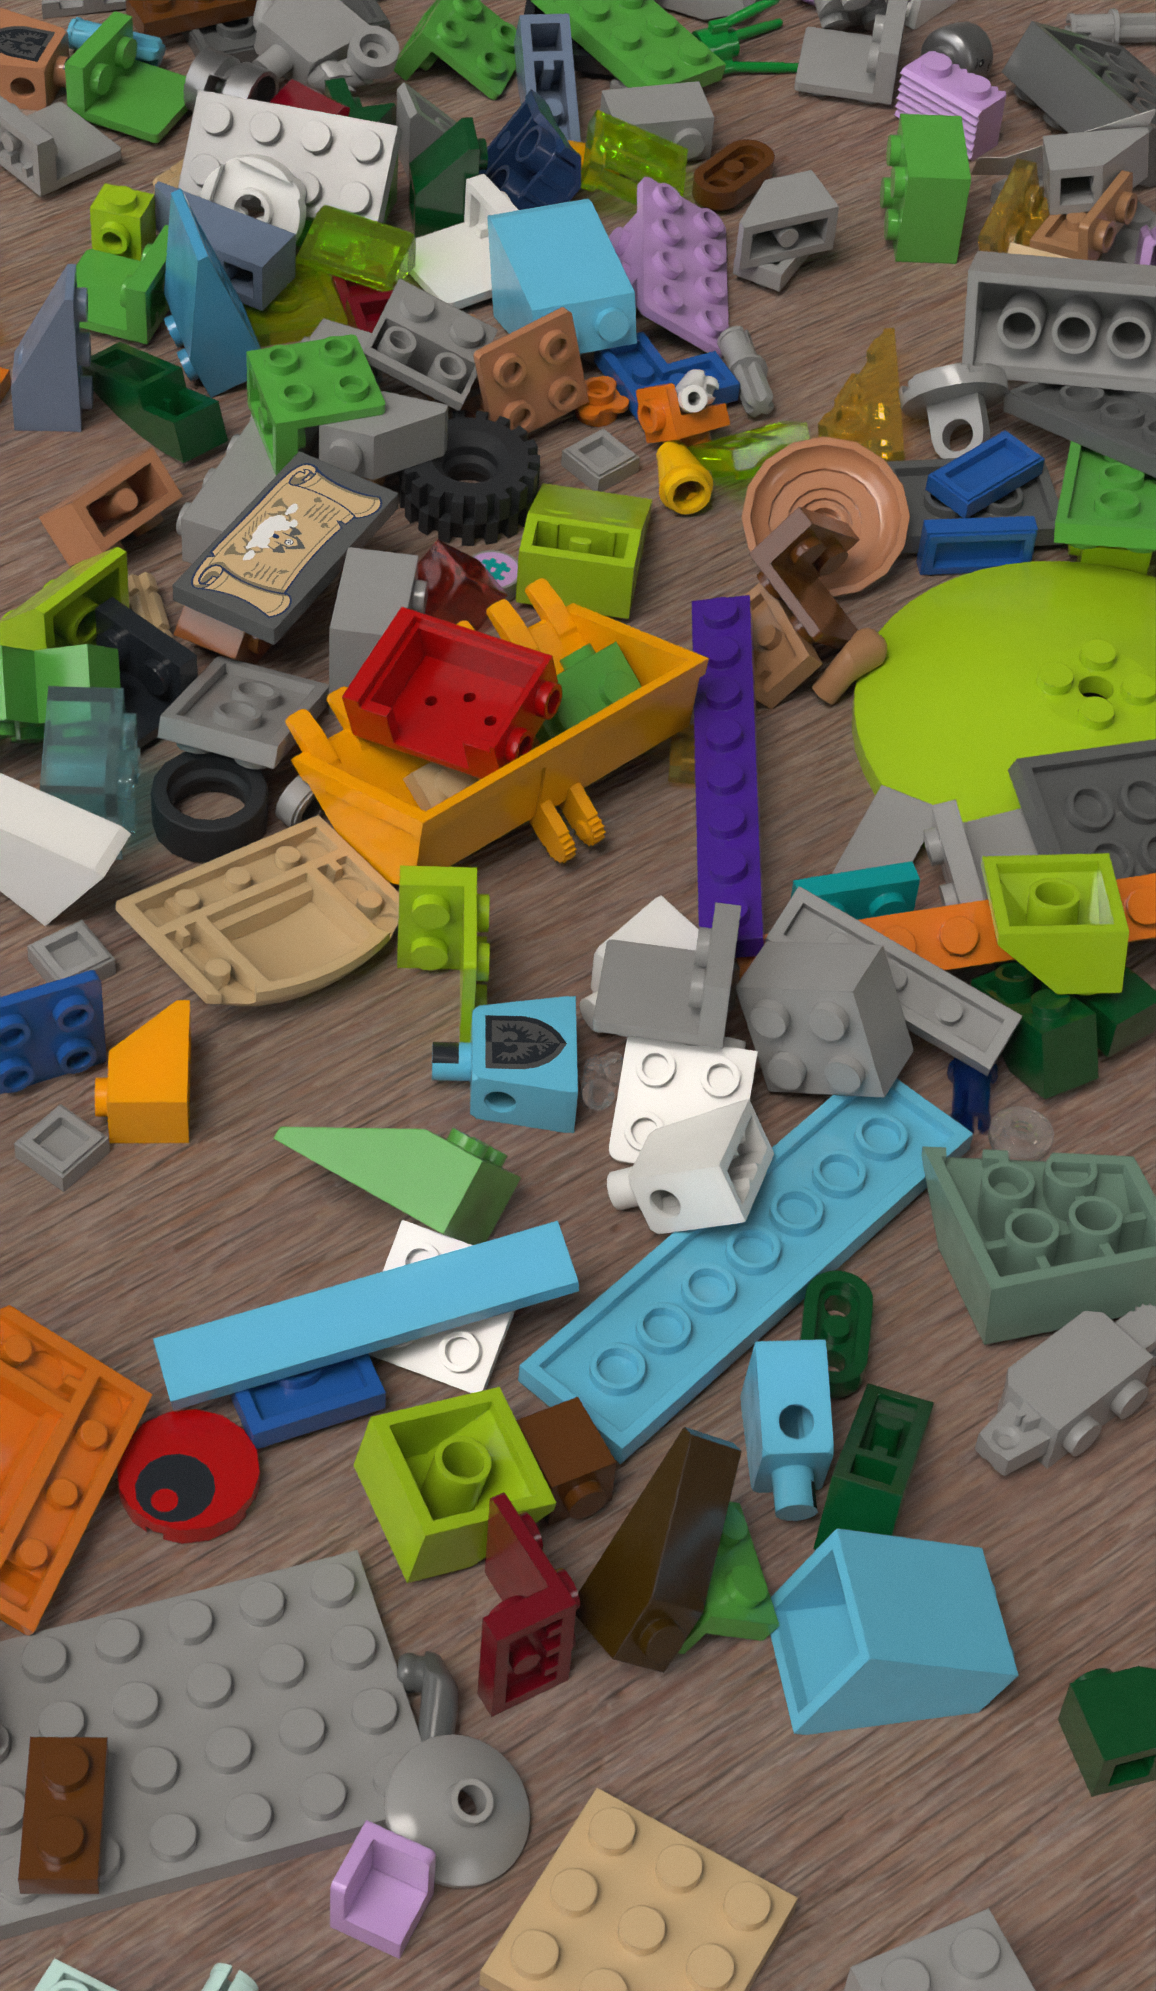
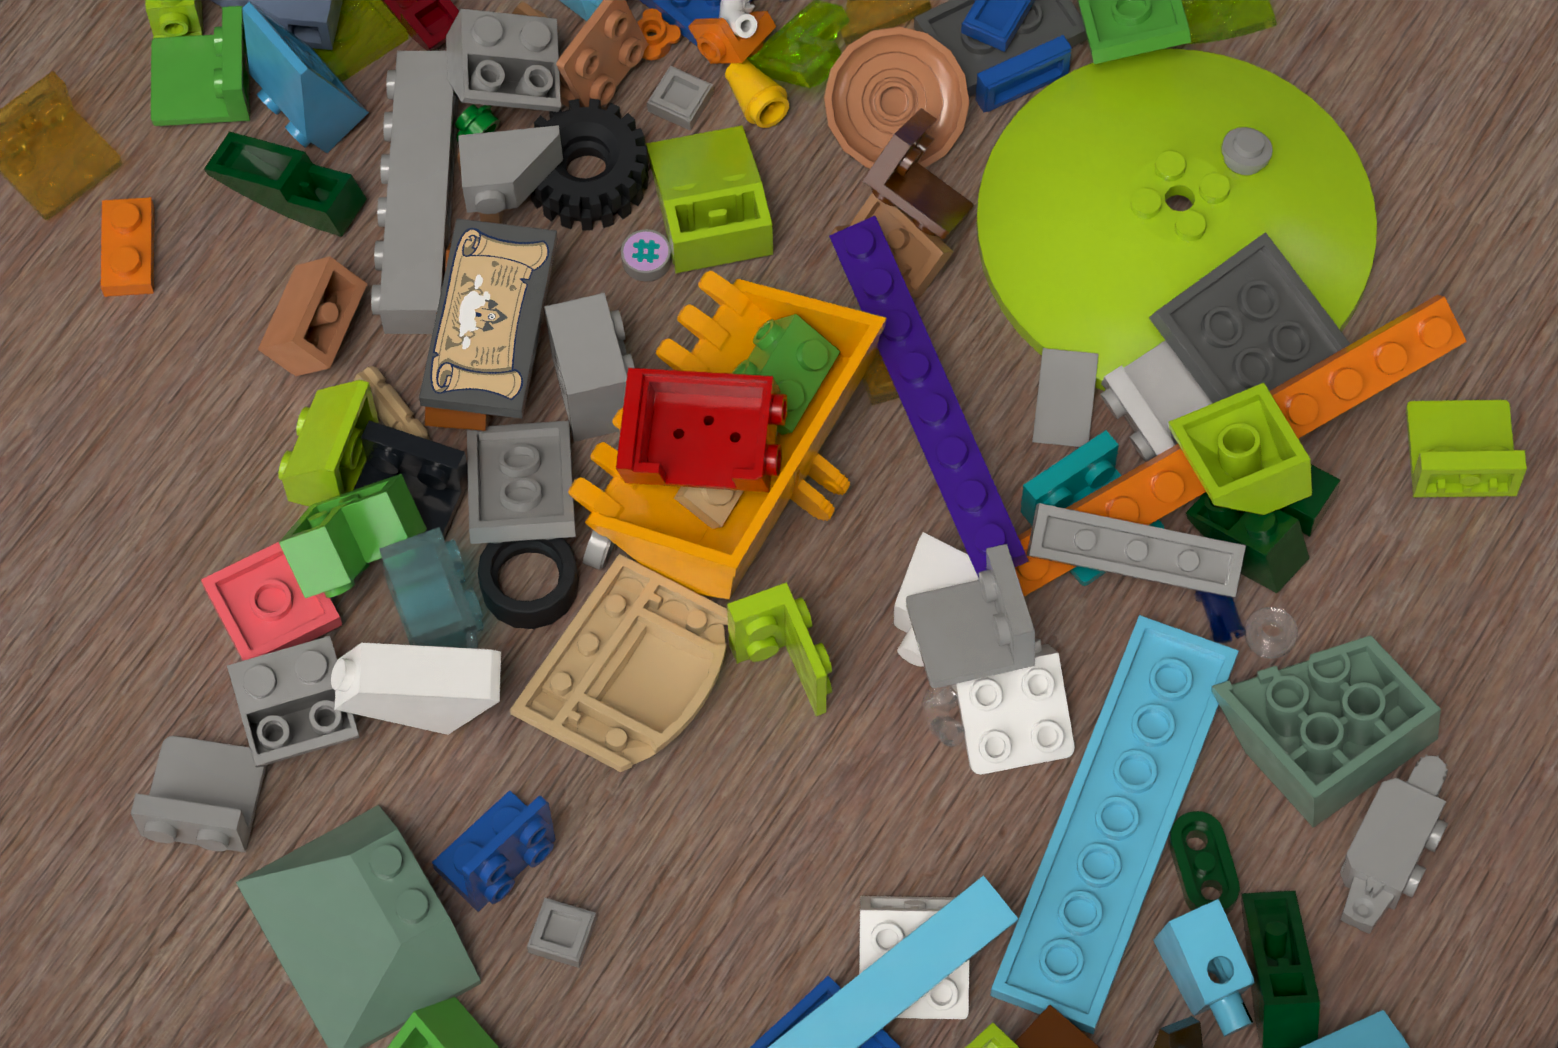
camera: 15 degrees left, 15 degrees up
(49, 360) = (198, 190): sand blue slope -> none
(71, 953) = (486, 760): light grey tile -> none
(149, 1081) = (606, 852): light orange slope -> none
(307, 388) = (437, 153): bright green bracket -> none
(439, 1180) = (850, 865): bright green slope -> none
(457, 586) = (632, 288): clear red brick -> none
(518, 1063) = (875, 723): medium azure torso -> none
(697, 1171) = (1054, 774): white torso -> none
(825, 1018) = (1098, 605): light grey brick -> none
(858, 657) = (979, 228): medium nougat arm -> none

